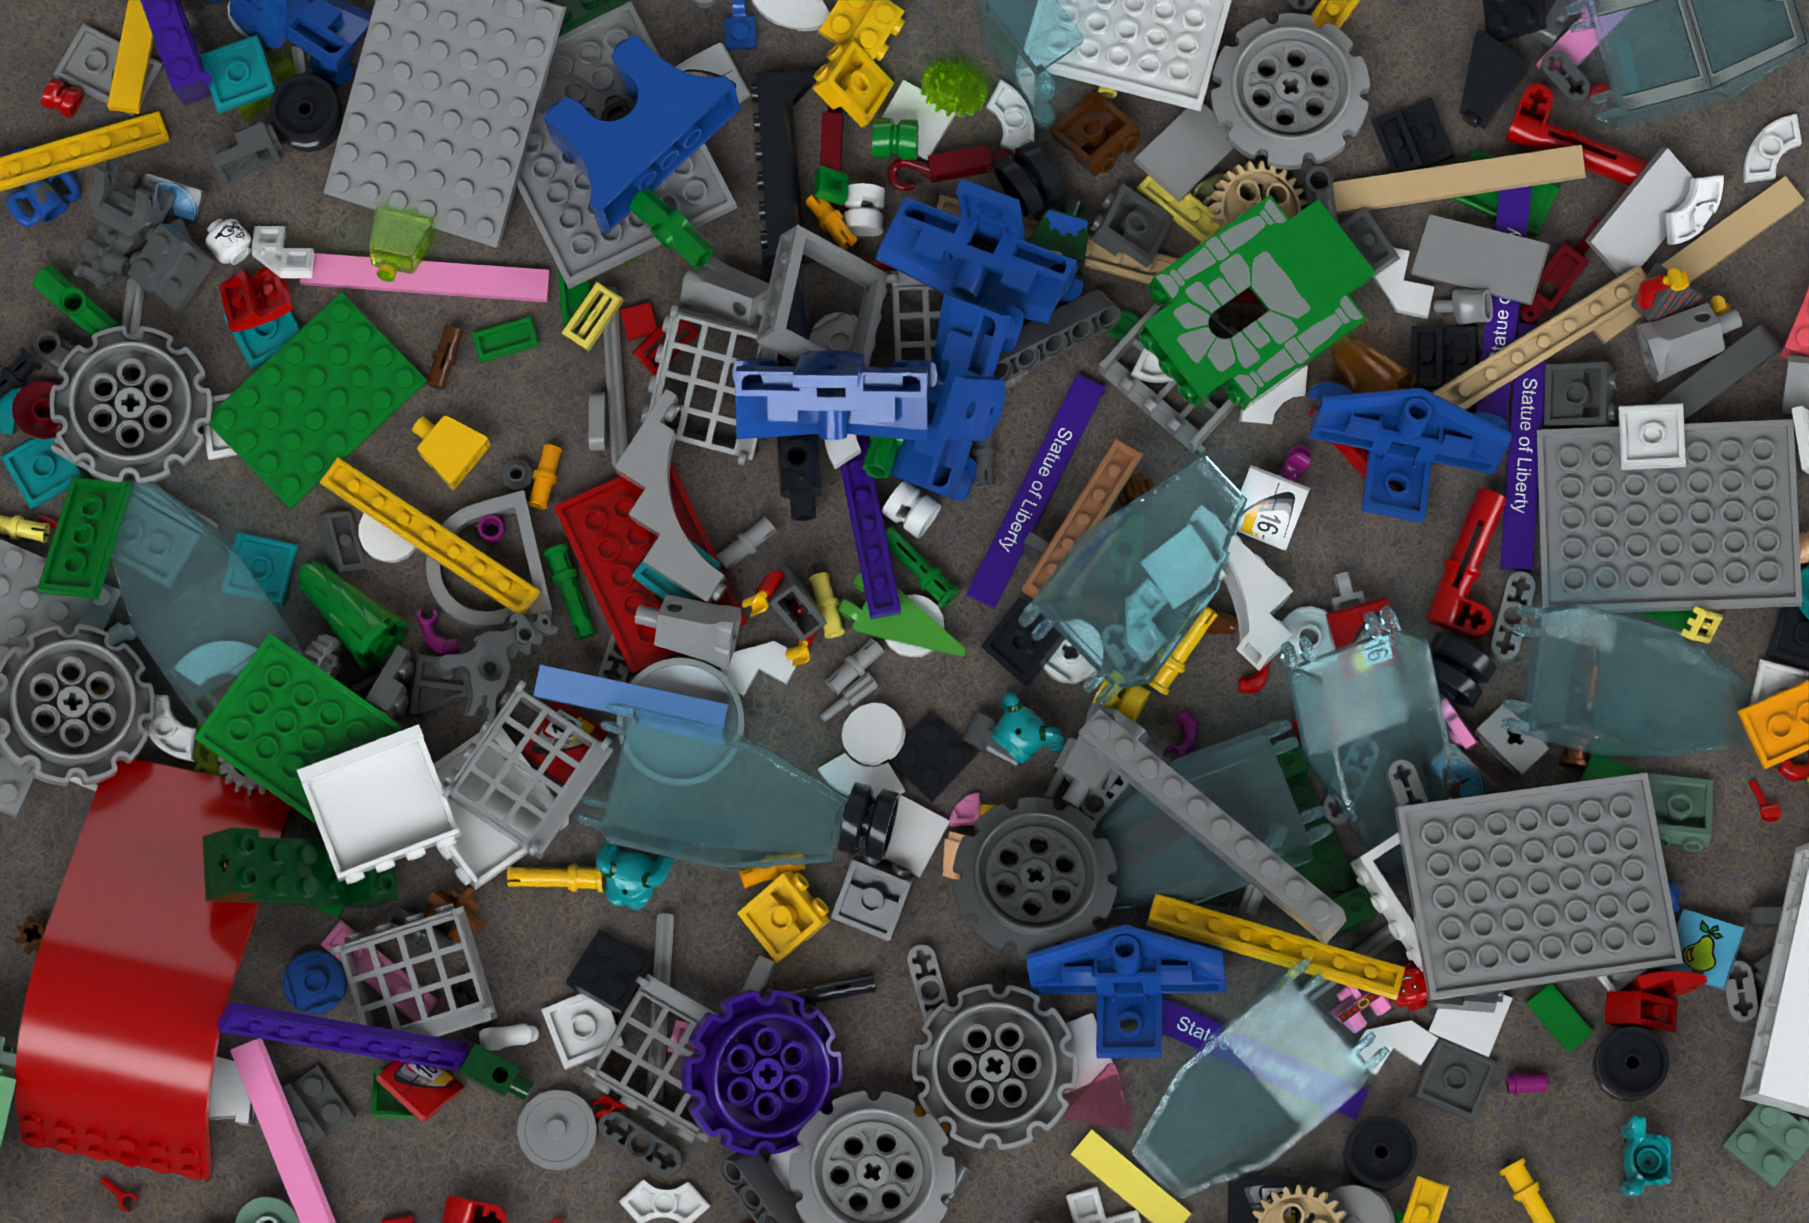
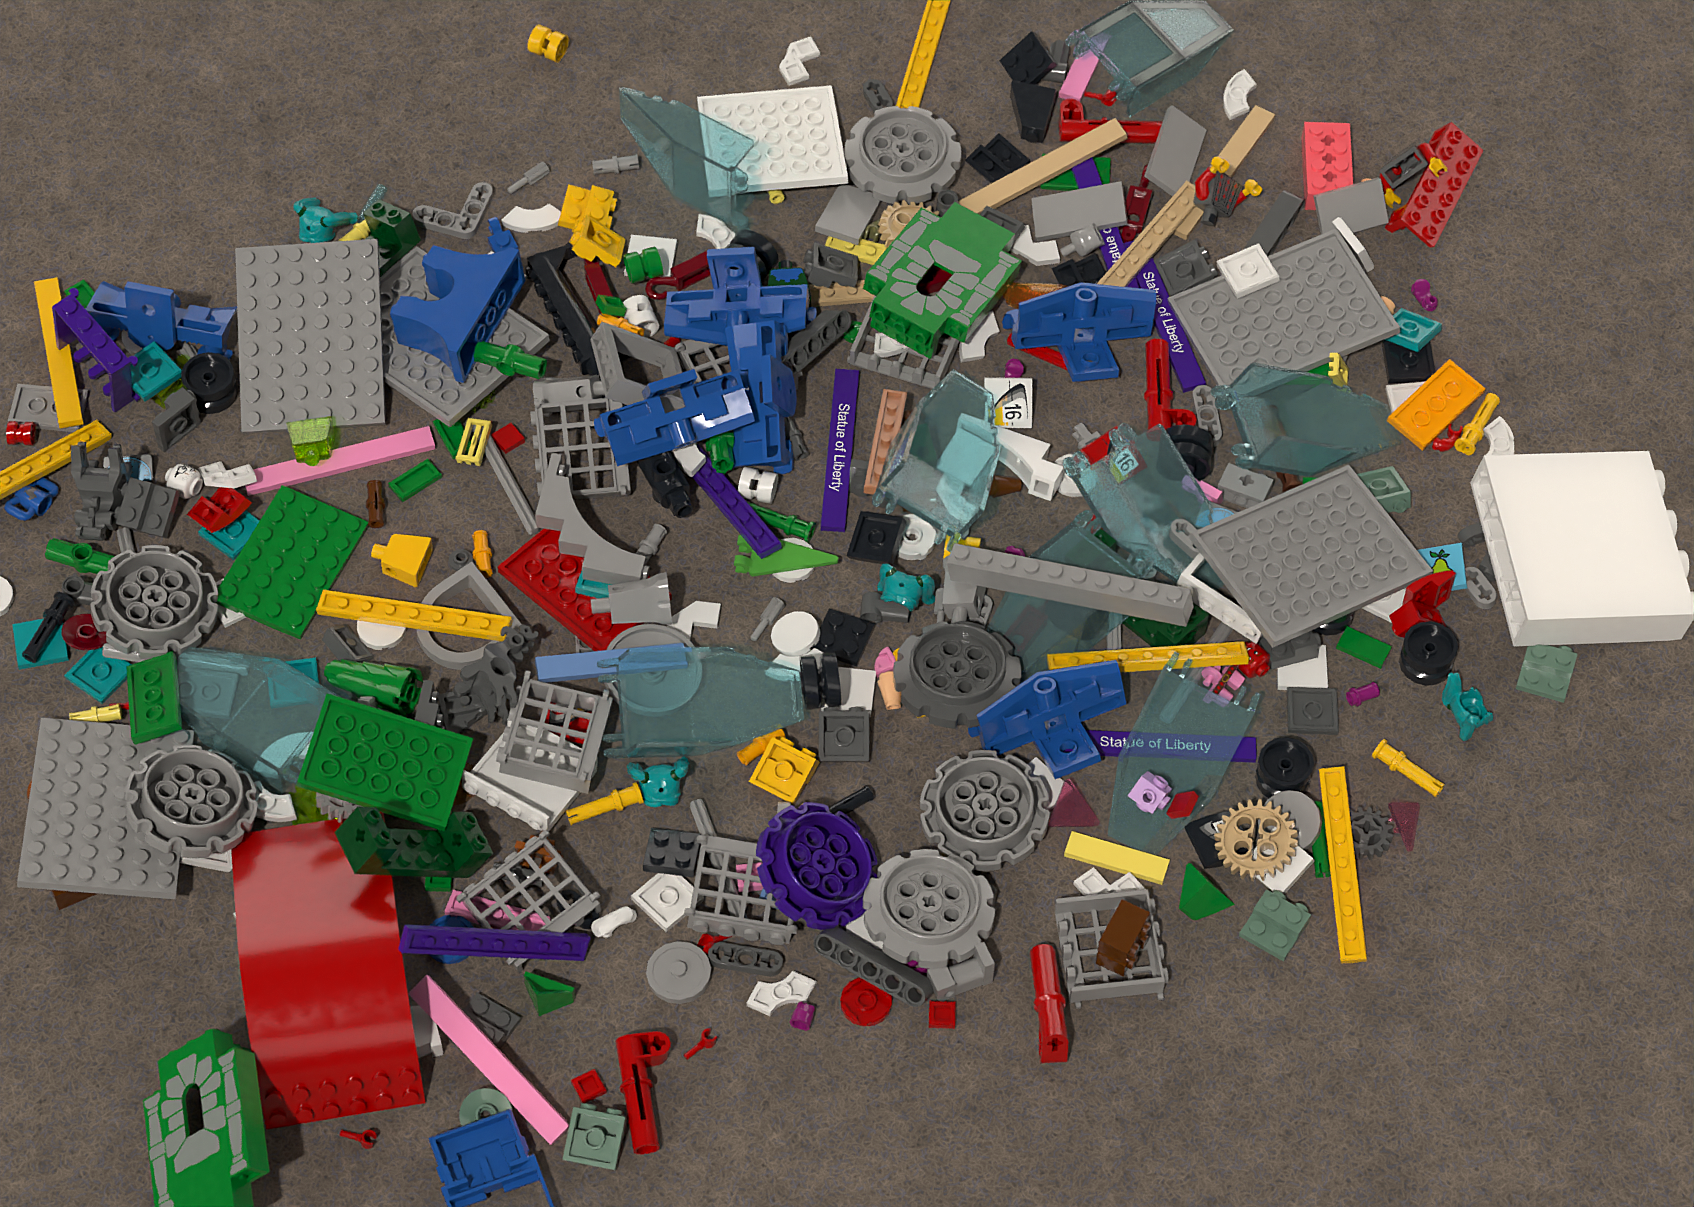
camera: 30 degrees left, 20 degrees down
(27, 929) = (220, 973): reddish brown gear -> none
(379, 804) = (453, 783): white panel -> none
(420, 1087) = (563, 972): red slope -> none
(439, 644) = (441, 682): magenta piece -> none
(479, 1069) = (613, 945): dark green torso -> none
(488, 521) = (457, 593): magenta hose -> none
(565, 578) = (525, 612): green pin -> none
(597, 421) = (505, 506): light grey beam -> none
(654, 336) = (524, 458): red tile -> none
(794, 606) = (701, 568): torso -> none
(827, 604) = (724, 566): light yellow pin -> none
(854, 666) = (761, 597): light grey pin -> none
(915, 969) = (910, 774): light grey beam -> none
(954, 88) = (669, 225): clear neon green gear -> none
(1096, 133) = (782, 222): reddish brown plate -> none
(1176, 662) = (989, 517): yellow pin -> none
(1202, 1125) = (1150, 793): none -> lavender brick
(1235, 1153) = (1182, 805): none -> red tile
(1255, 682) = (1050, 513): red arm -> none
(1403, 1037) = (1271, 698): white tile -> none
(1559, 82) = (1082, 92): dark grey beam -> none
(1683, 339) = (1238, 213): light grey piece -> none
(1695, 210) = (1207, 141): white tile -> none
(1768, 811) = (1438, 474): red hand -> none

